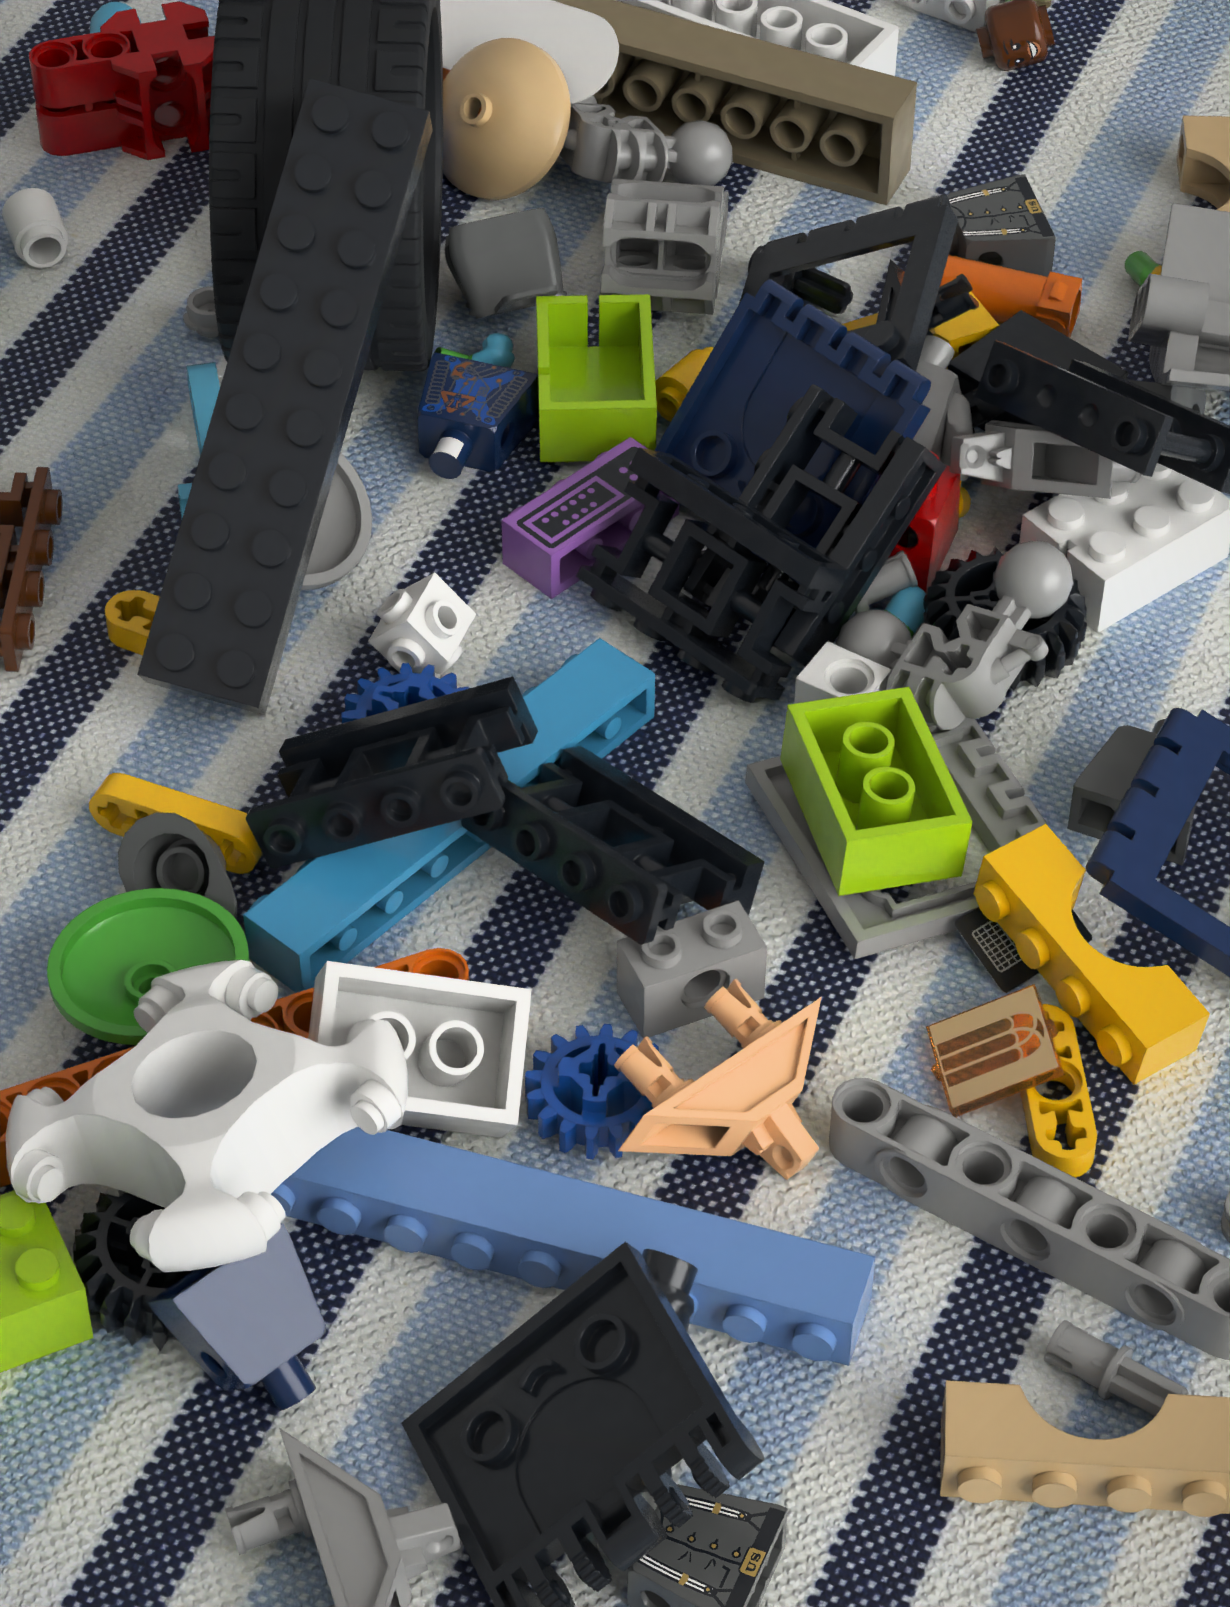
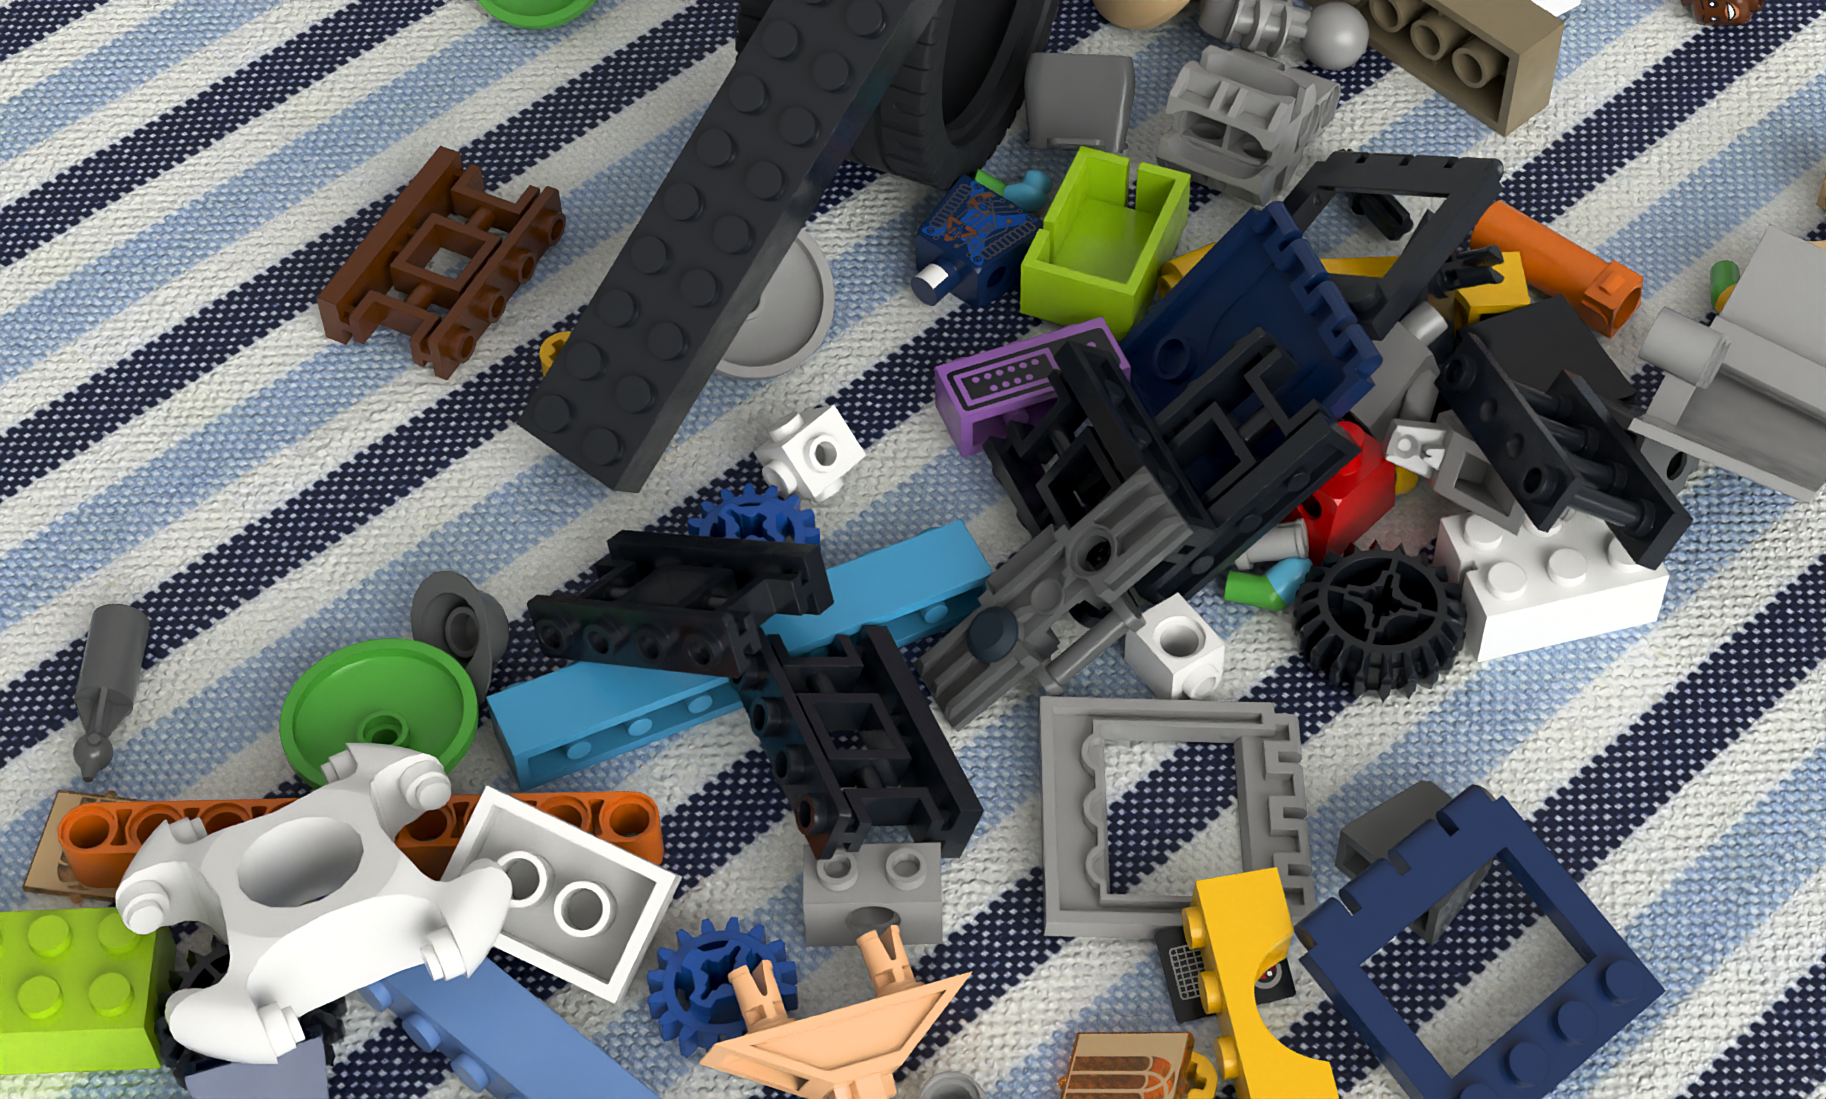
camera: 25 degrees right, 5 degrees up
(126, 799) = (468, 553): yellow beam -> none
(713, 659) = (1042, 583): none -> dark grey piece
(875, 791) = (1130, 772): lime brick -> none
(976, 669) = (1322, 656): light grey piece -> none
(1003, 226) = (1587, 197): dark grey torso -> none

